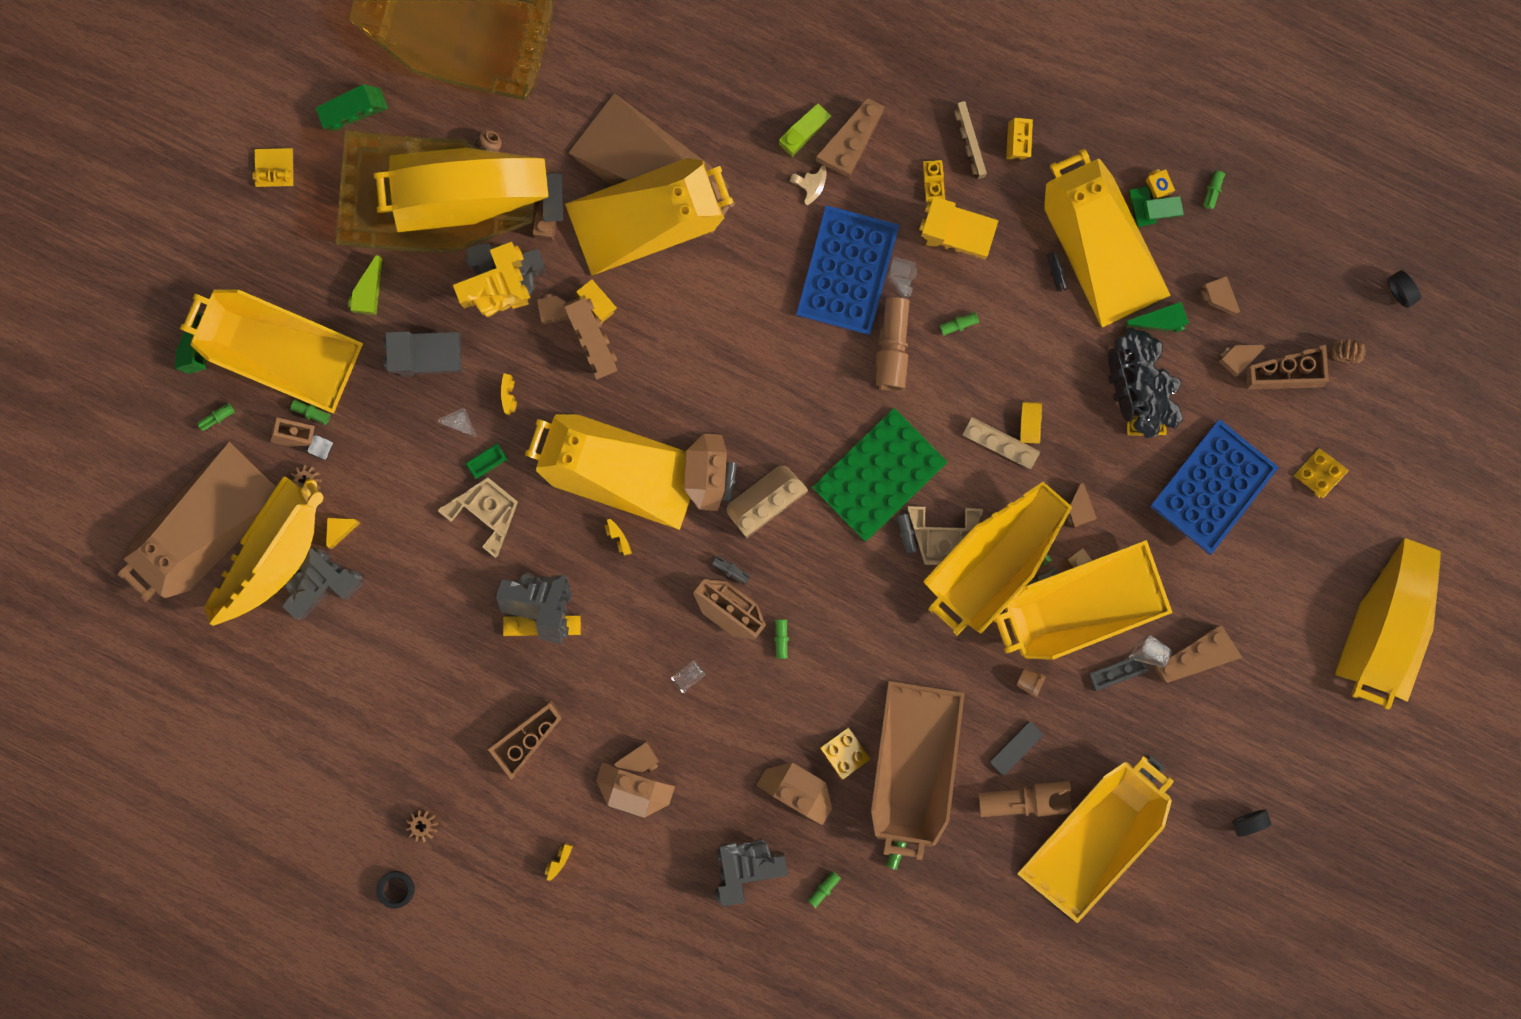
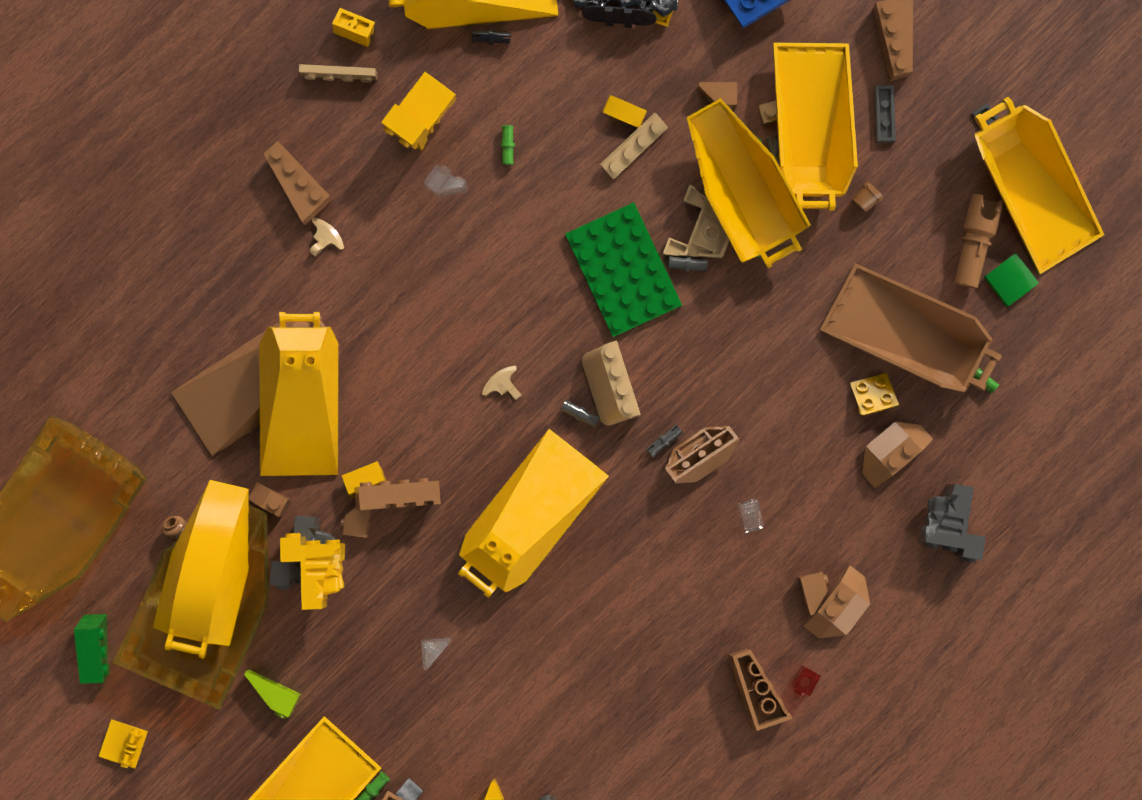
camera: 70 degrees left, 0 degrees up
(422, 353) = (355, 662): dark grey brick -> none
(486, 461) = (479, 636): green tile -> none
(491, 506) = (524, 647): tan wing -> none
(508, 401) = (430, 596): yellow slope -> none
(527, 627) = (654, 638): yellow plate -> none
(539, 600) = (630, 631): dark grey brick -> none
(554, 203) = (257, 487): dark grey tile -> none
(556, 866) = (887, 703): yellow slope -> none
(559, 781) = (813, 677): none -> clear red brick
(615, 532) = (590, 537): yellow slope -> none
(706, 471) = (563, 431): medium nougat wedge -> none
(731, 398) = (501, 383): none -> tan piece
(781, 639) = (745, 416): bright green pin -> none
(804, 130) = (272, 225): lime slope -> none
(824, 889) = (994, 458): bright green pin -> none
(847, 270) = (419, 231): blue plate -> none
(892, 358) = (518, 218): medium nougat piece -> none
(933, 179) = (363, 121): yellow slope -> none
(1001, 847) = (1011, 280): none -> green slope
(1016, 748) = (923, 233): dark grey tile -> none
(1150, 651) = (877, 77): clear slope -> none
(1251, 823) = (1068, 40): black tyre -> none

